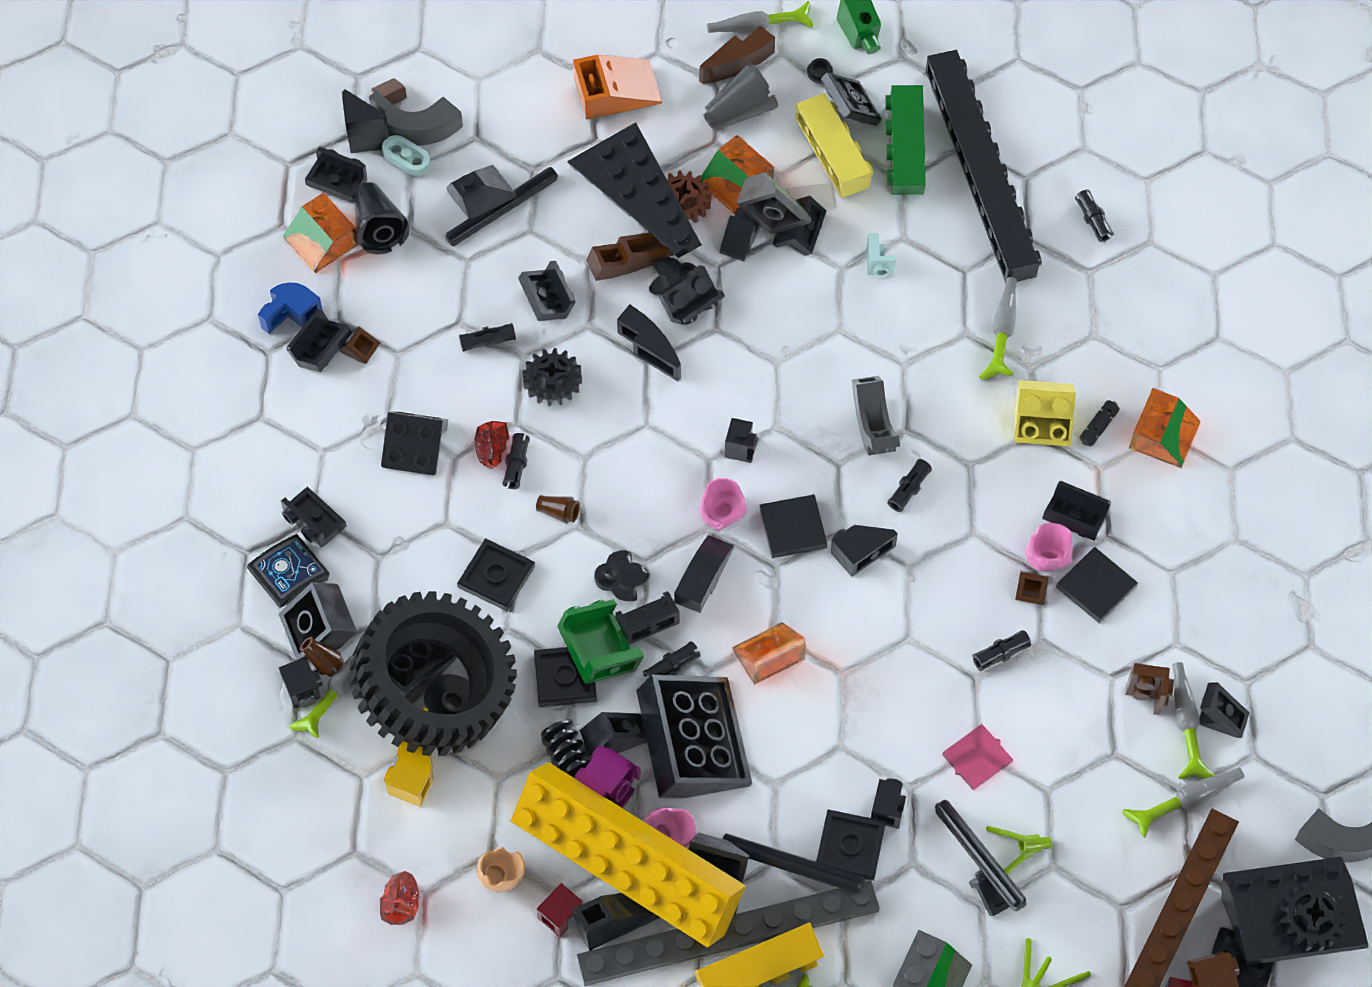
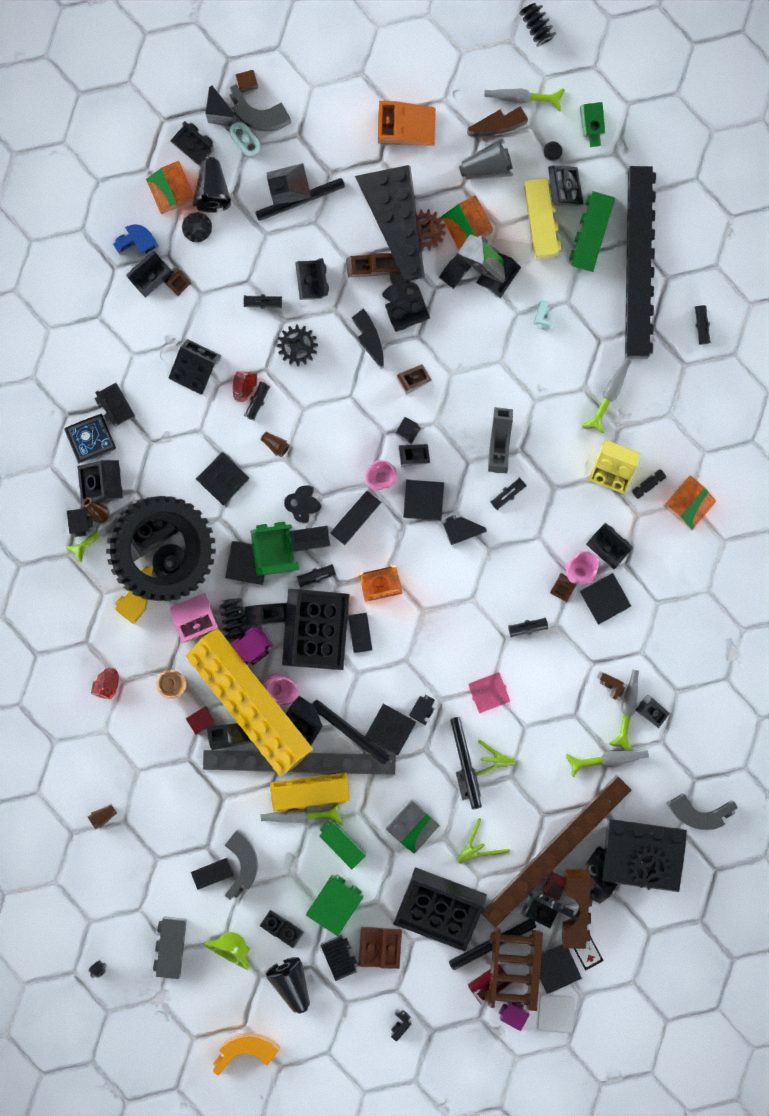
camera: 15 degrees right, 25 degrees up
(374, 282) = (198, 235): none -> black gear
(506, 767) = (194, 618): none -> bright pink slope
(724, 378) = (413, 378): none -> reddish brown slope
(757, 471) = (413, 454): none -> black slope
(761, 724) = (360, 632): none -> black slope

